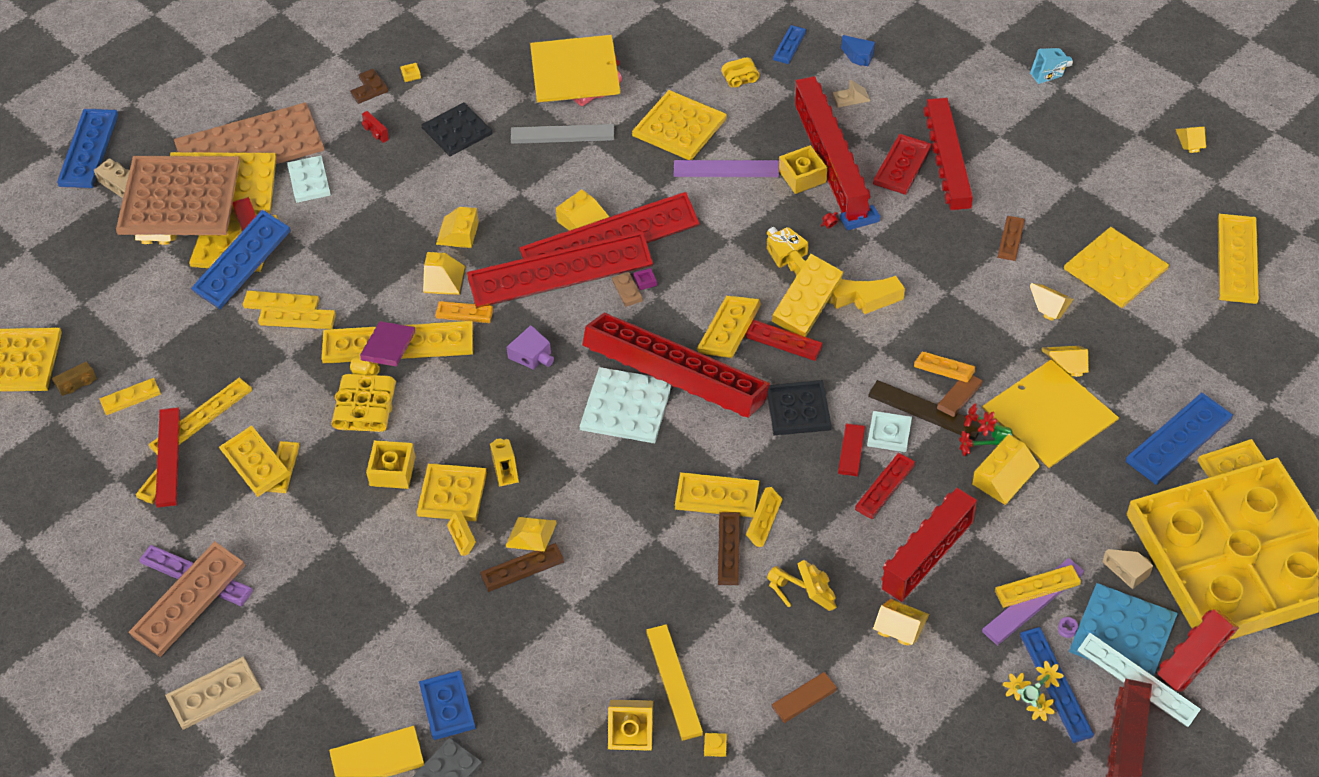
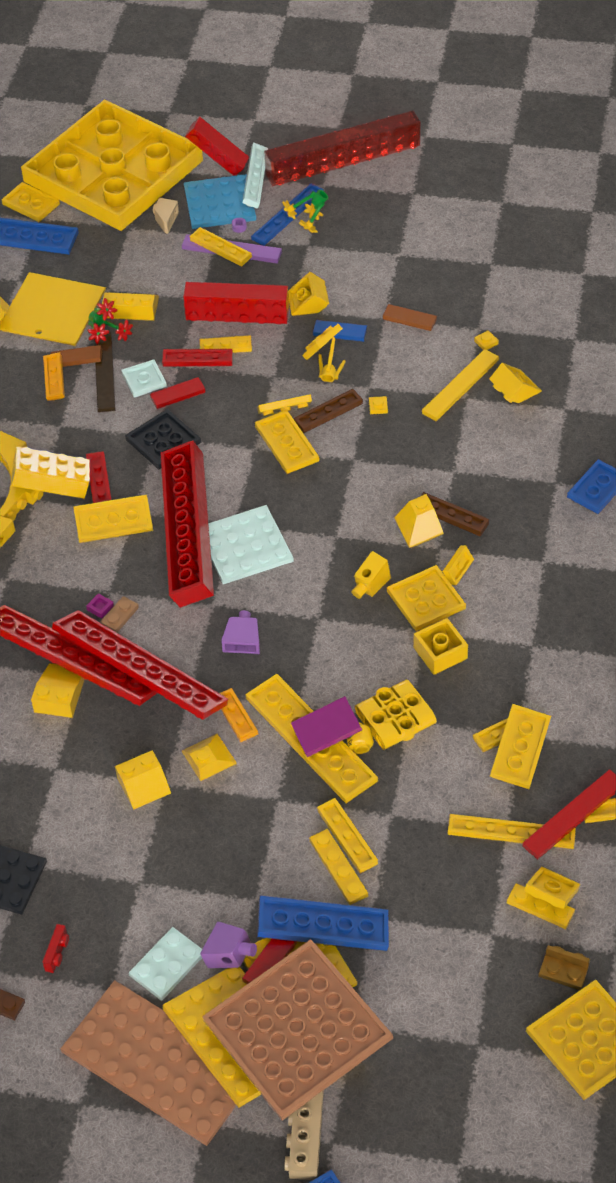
camera: 125 degrees left, 0 degrees up
(129, 403) = (552, 887): none -> yellow plate
(281, 204) = (227, 947): none -> medium lavender torso
(705, 595) = (378, 405): none -> yellow plate
(833, 624) = (349, 331): none -> blue tile
(888, 519) = (237, 343): none -> yellow plate

